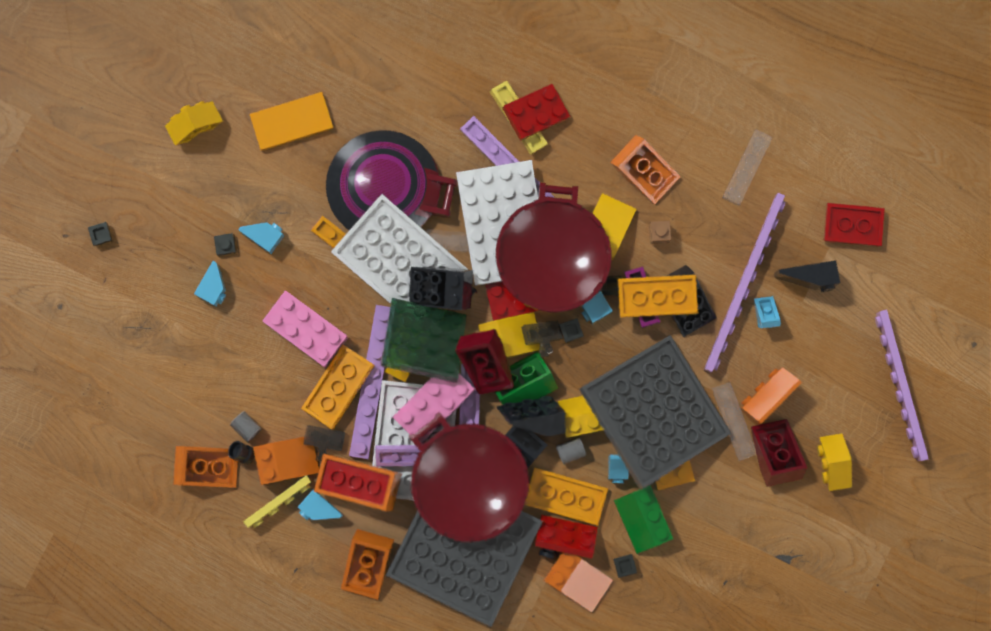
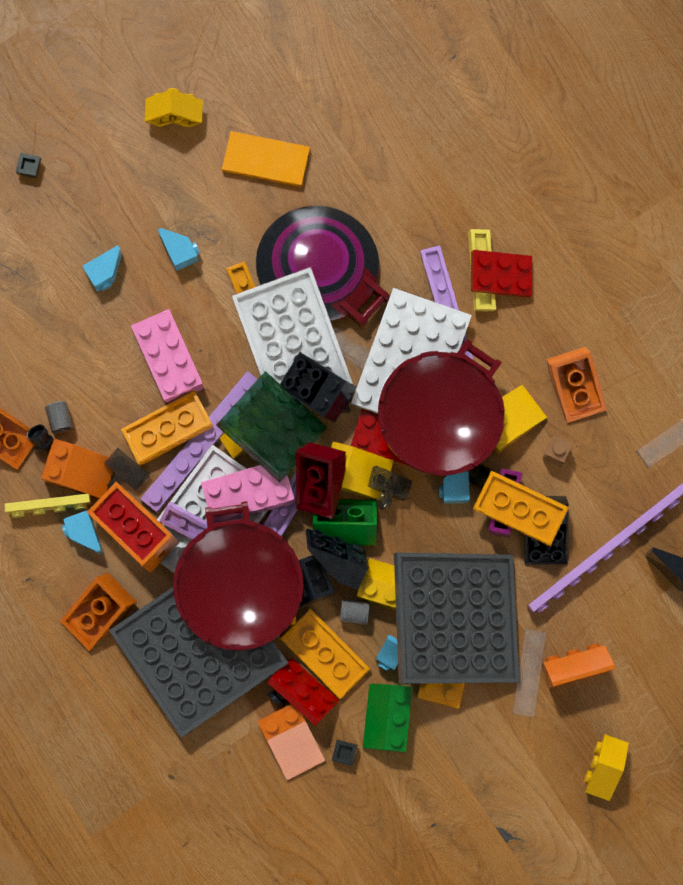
camera: 30 degrees right, 5 degrees down
(224, 244) = (138, 238): pearl dark grey plate -> none
(571, 330) = (419, 497): pearl dark grey plate -> none
(766, 312) = (618, 585): medium azure slope -> none
(778, 453) = (555, 727): dark red slope -> none

